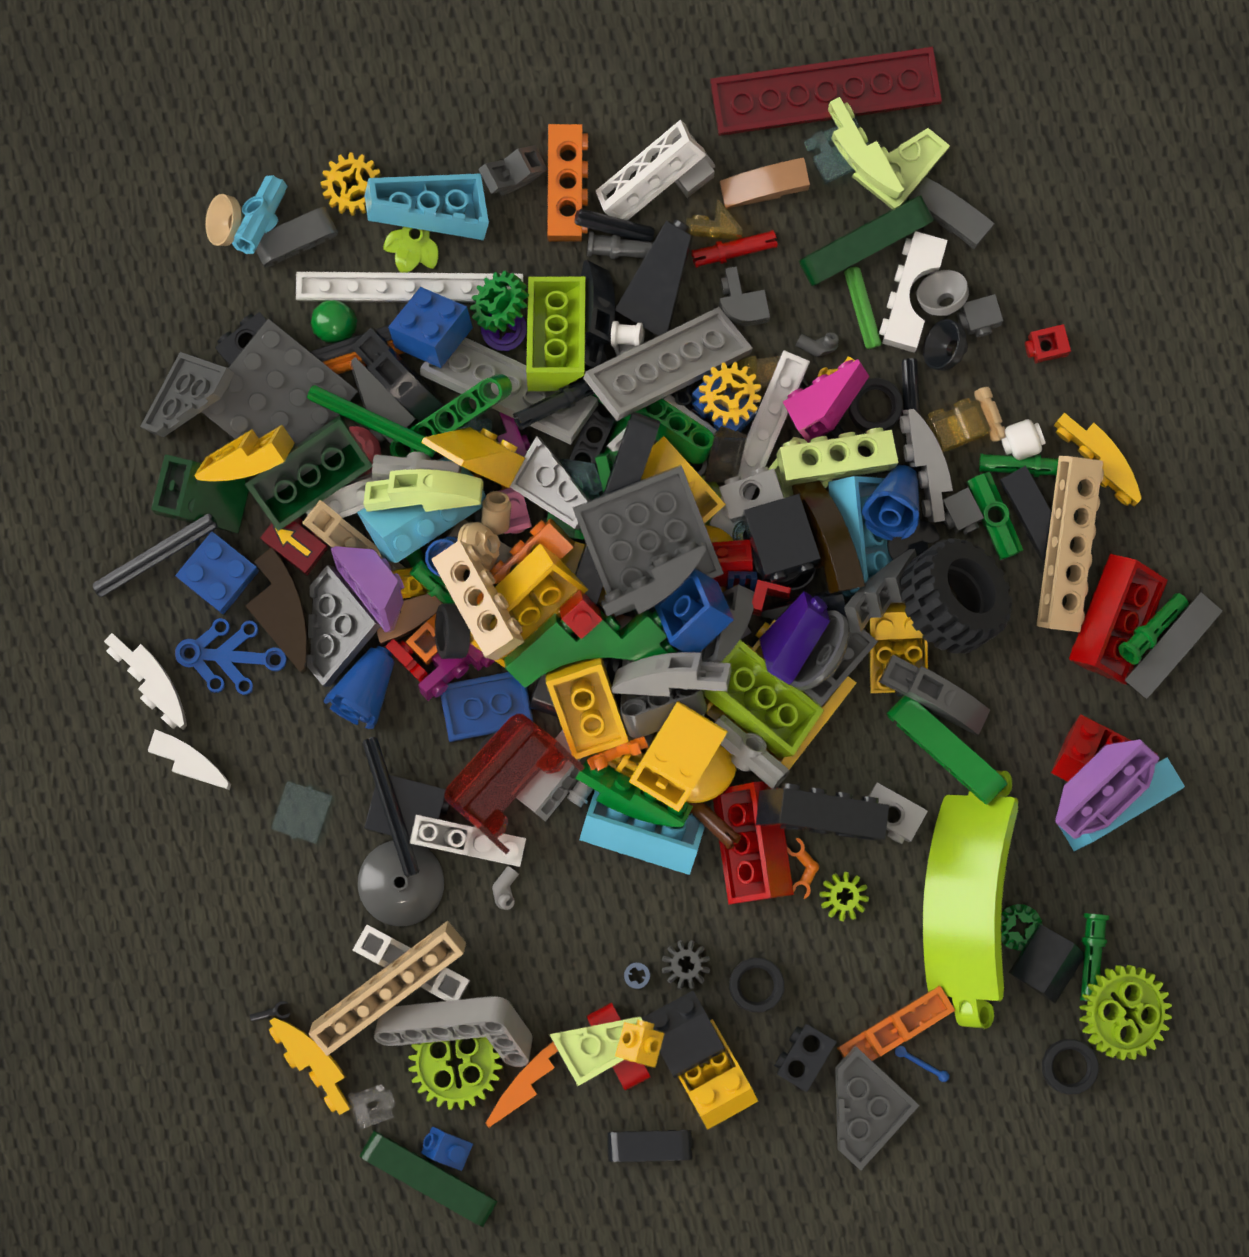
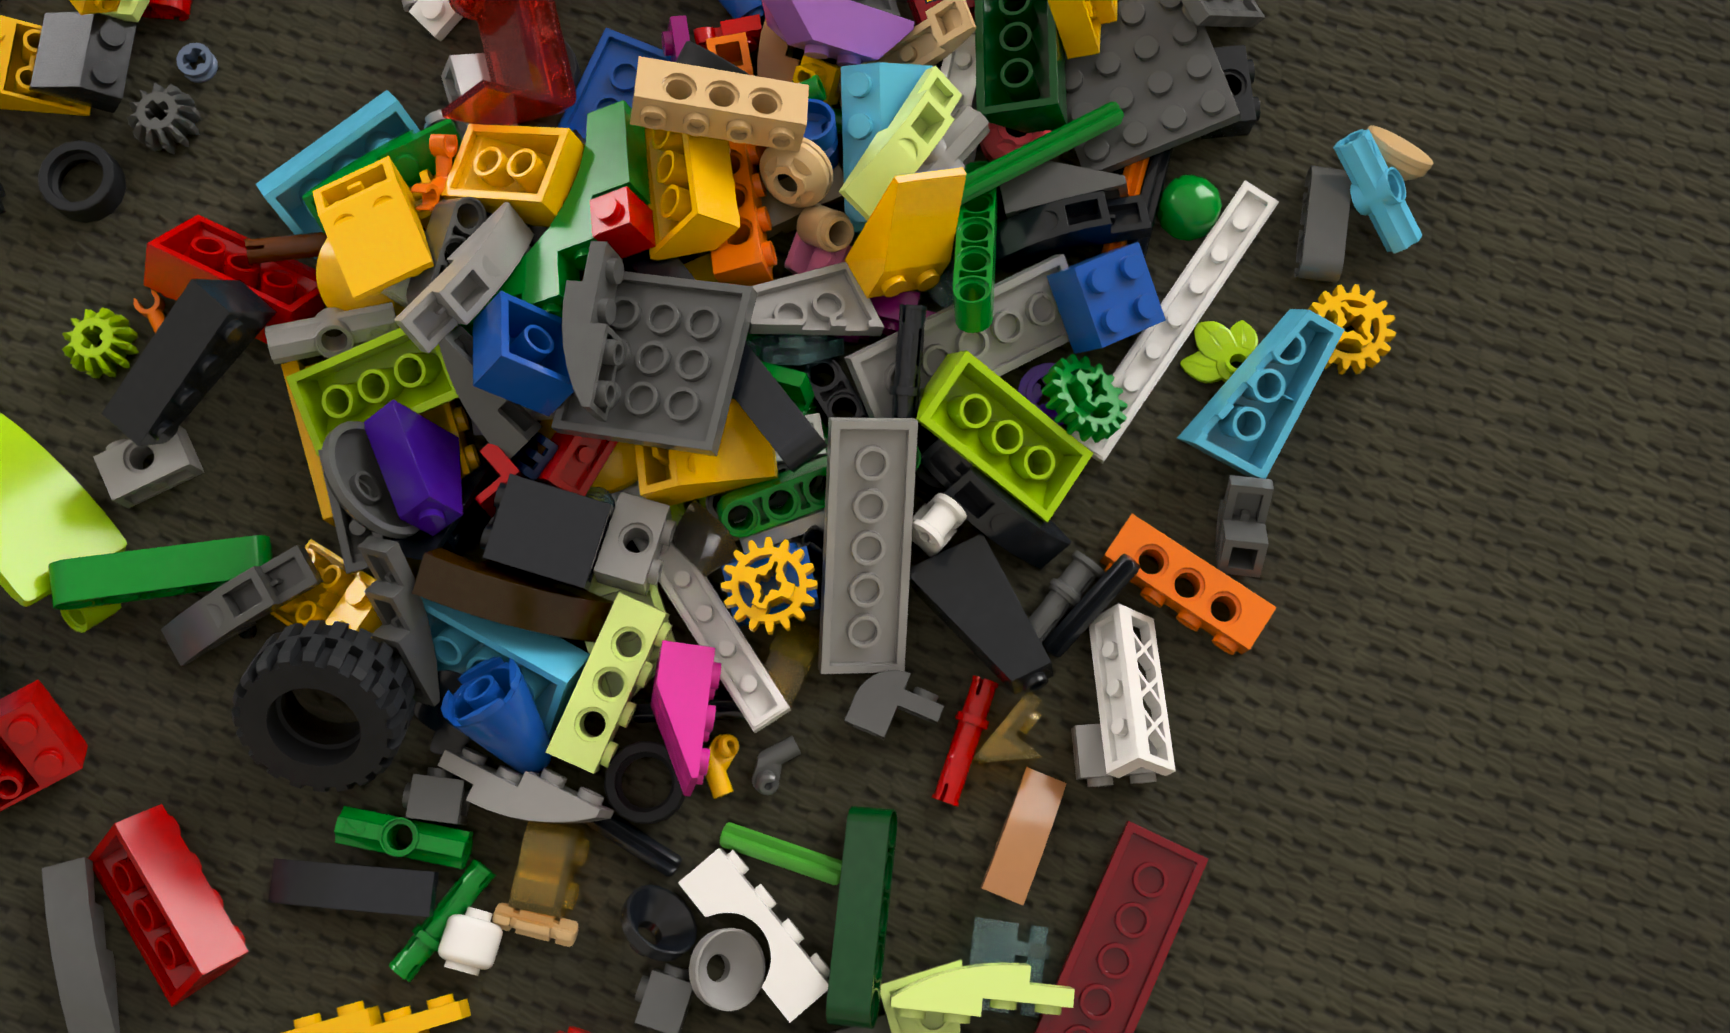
camera: 130 degrees right, 5 degrees down
(1061, 532) = (293, 906): tan brick -> none
(1146, 636) = (112, 923): green pin -> none

